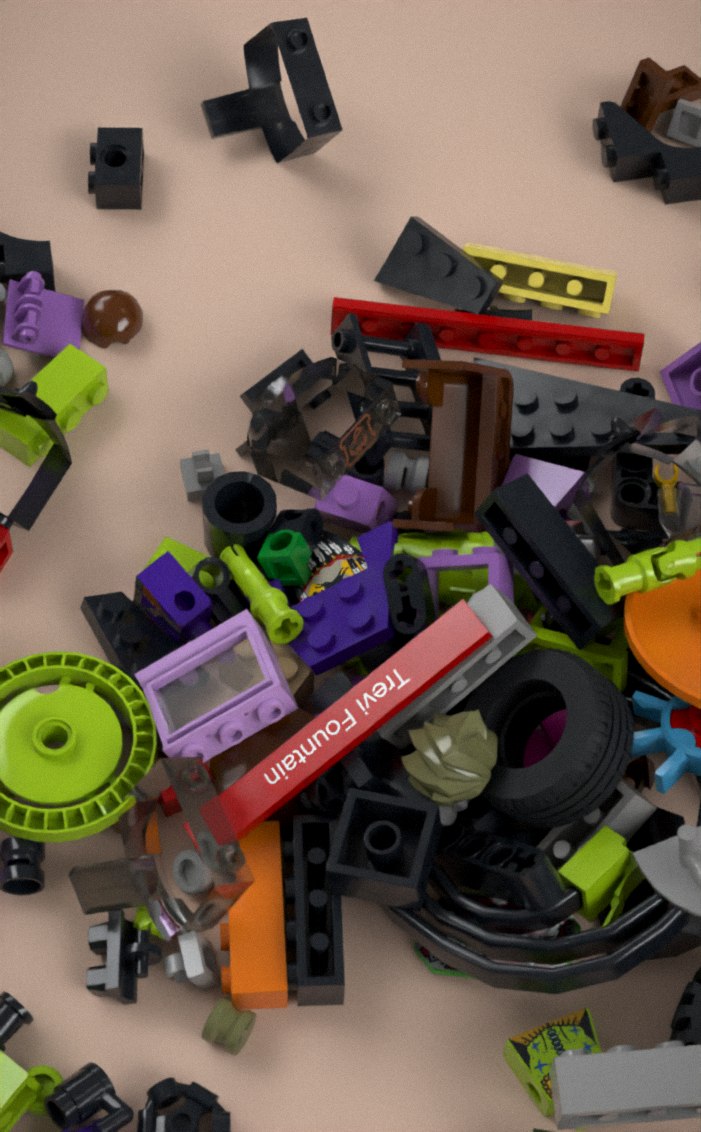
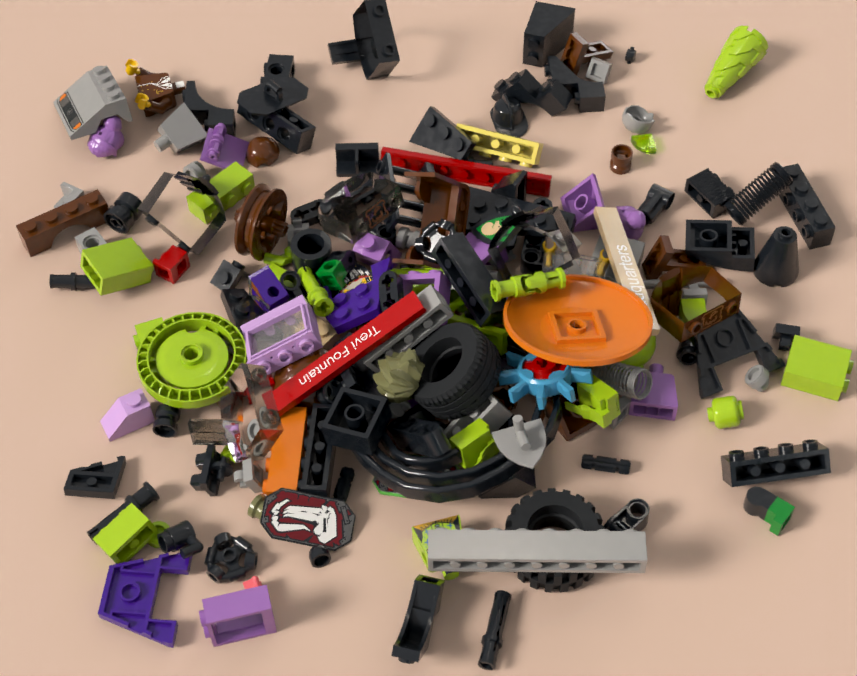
camera: 10 degrees right, 5 degrees down
(90, 567) = (228, 275): none -> black bracket
(119, 212) = (272, 96): none -> black shield
(129, 256) = (284, 127): none -> black brick
(140, 464) = (260, 221): none -> reddish brown wheel
(179, 529) = (280, 260): none -> lime arm
(217, 432) = (307, 212): none -> black beam
(287, 323) = (356, 158): none -> black panel
(314, 1039) = (307, 519): none -> shield
(344, 1106) = (319, 556): none -> black hinge
(363, 972) = (344, 483): none -> black axle
(466, 477) = (431, 231): none -> black piece
(544, 222) = (509, 117): none -> black piece
(569, 168) = (526, 89): none -> black arch
(570, 447) = (487, 228): none -> shield
(577, 359) = (512, 185): none -> black slope
(592, 57) = (547, 32): none -> black slope

